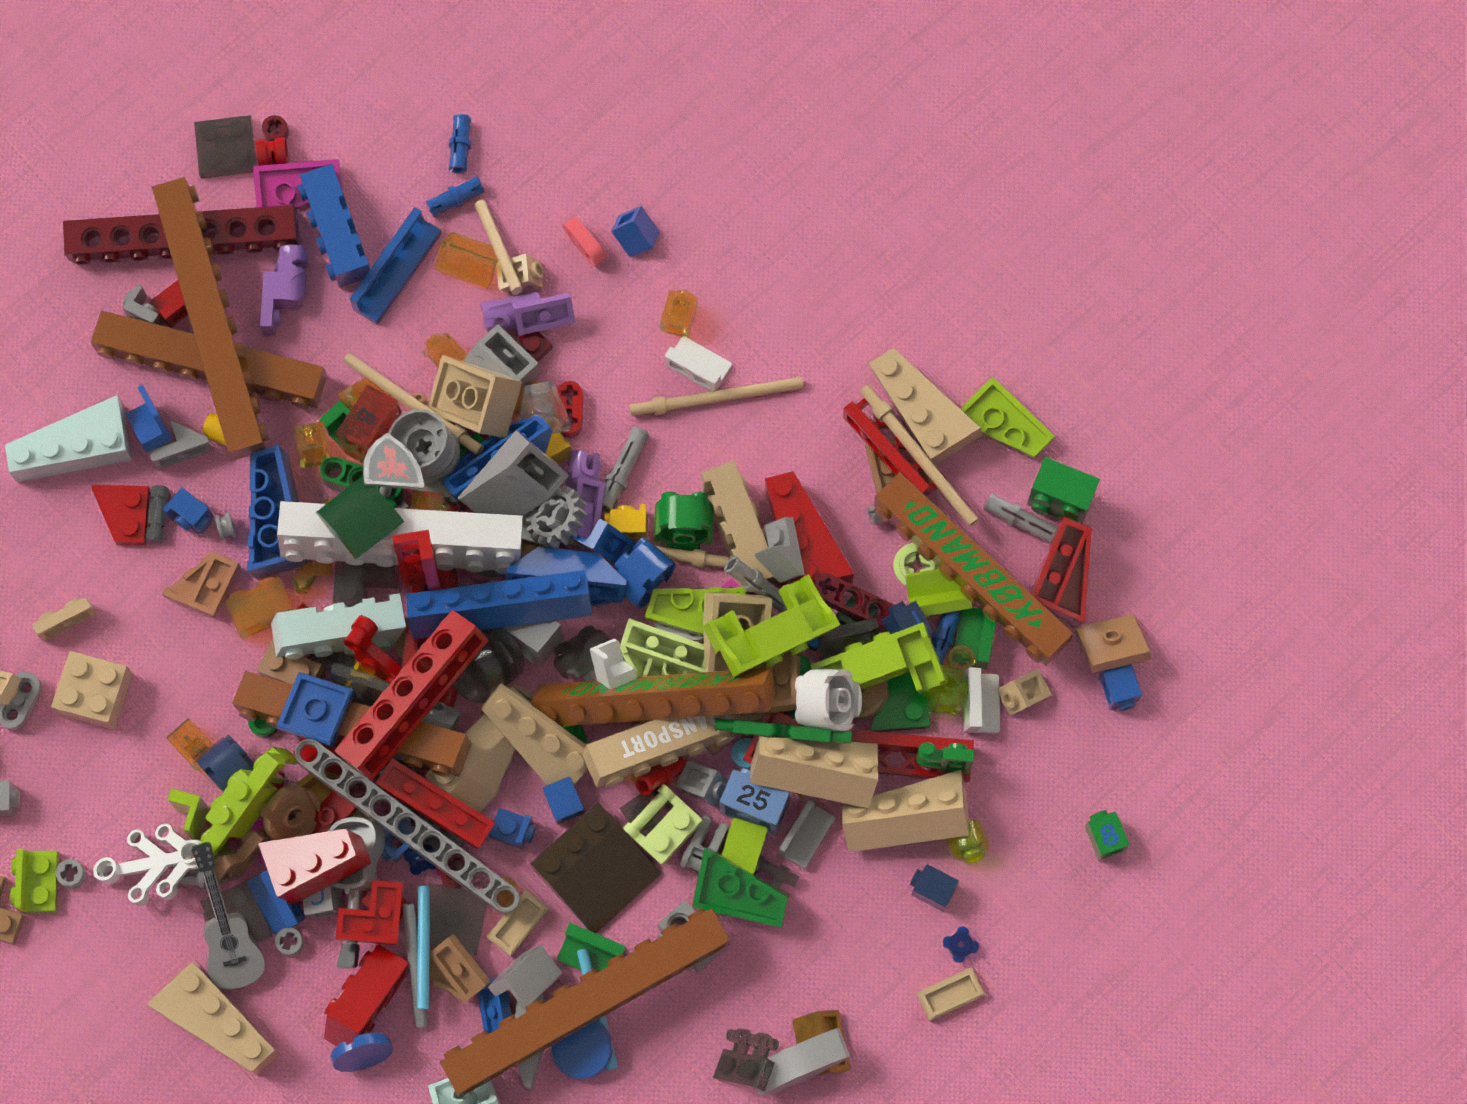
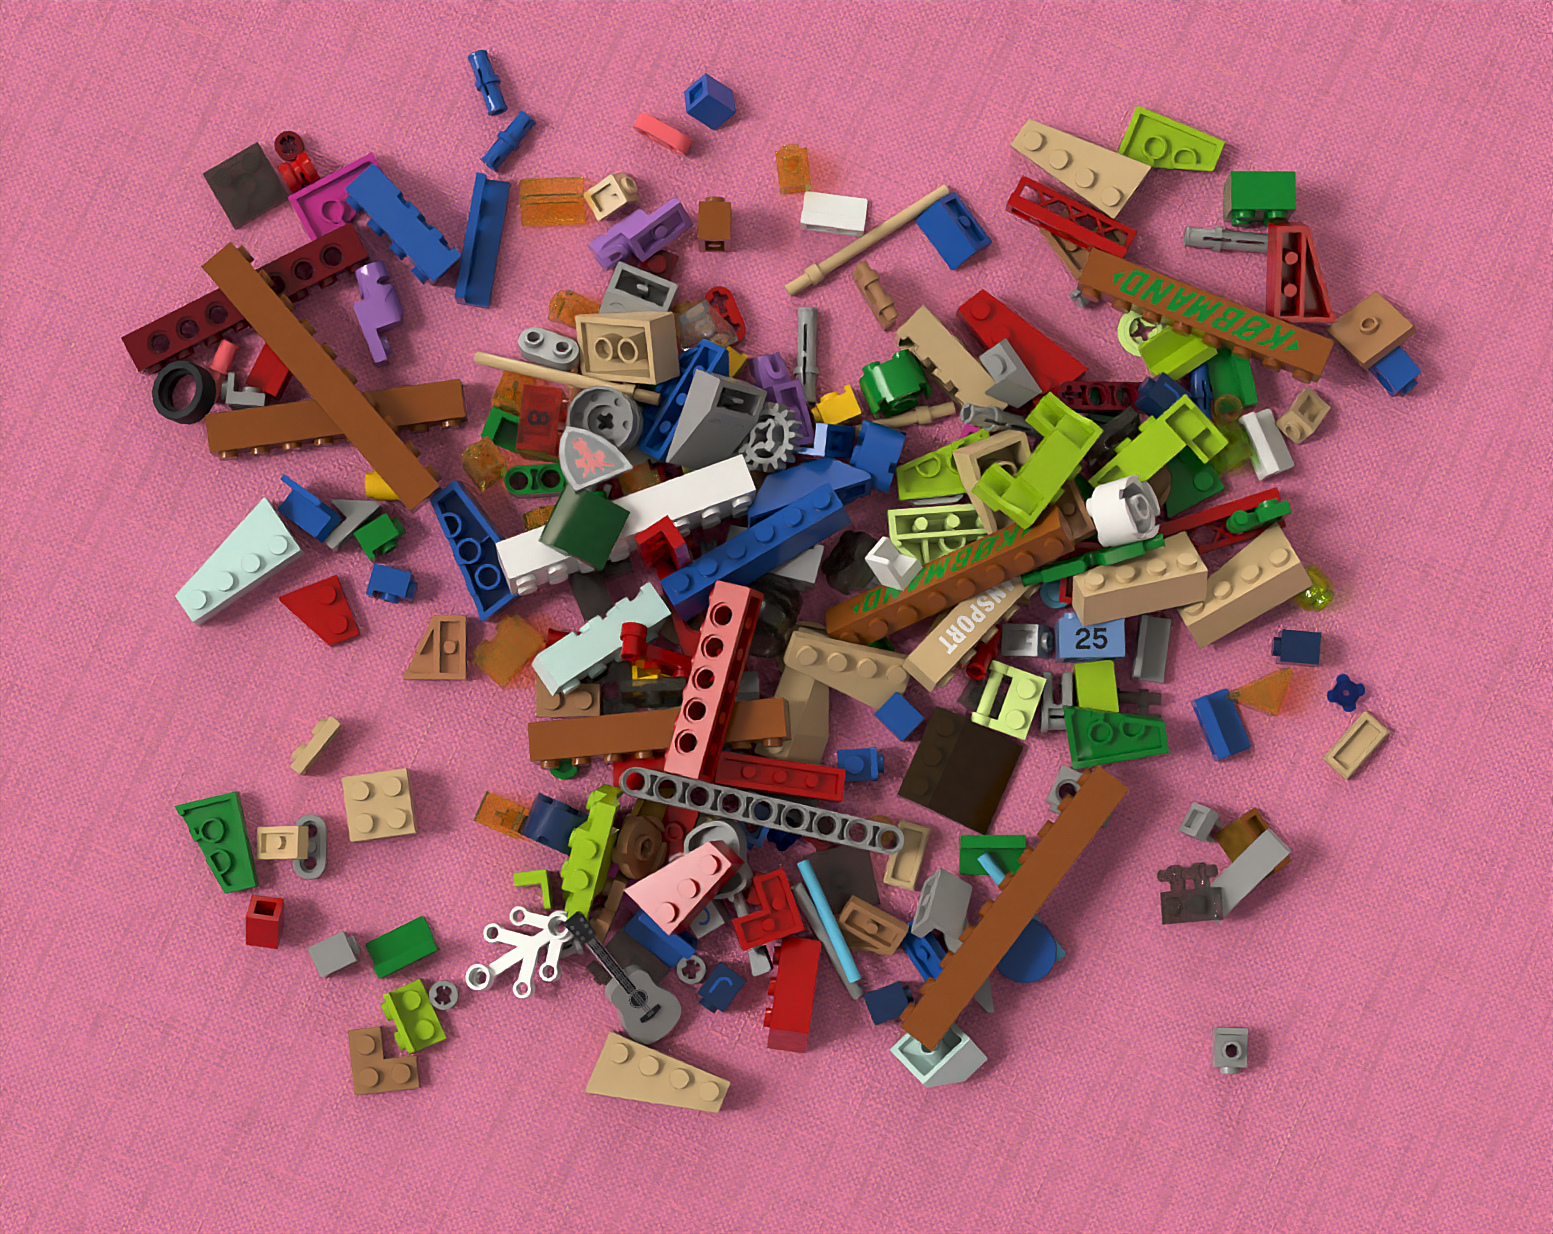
camera: 25 degrees left, 10 degrees up
(54, 819) = (402, 947): none -> green panel
(86, 273) = (164, 387): none -> black tyre
(138, 276) = (222, 363): none -> coral axle
(156, 515) = (358, 599): dark grey axle -> none
(198, 469) = (380, 536): none -> green brick
(225, 526) = (434, 583): light grey bush -> none
(306, 968) = (720, 988): none -> dark blue brick
(308, 574) = (540, 599): clear yellow arm -> none
(315, 709) = (620, 734): blue tile -> none
(361, 1054) = (818, 1046): blue tile -> none
(405, 373) = (547, 347): none -> light grey plate
(442, 1038) = (888, 1002): none -> dark blue brick
(498, 247) = (579, 177): tan bar -> none
(591, 329) = (714, 225): none -> dark orange brick
(701, 433) = (874, 295): none -> medium nougat plate
(783, 1001) = (1199, 823): none -> light grey tile
(792, 416) = (953, 230): none -> blue panel
(840, 926) = (1220, 725): none -> blue panel
(883, 411) = (1045, 188): tan bar -> none
(887, 914) = (1263, 694): none -> clear yellow slope
(1106, 834) = (1442, 524): green brick -> none

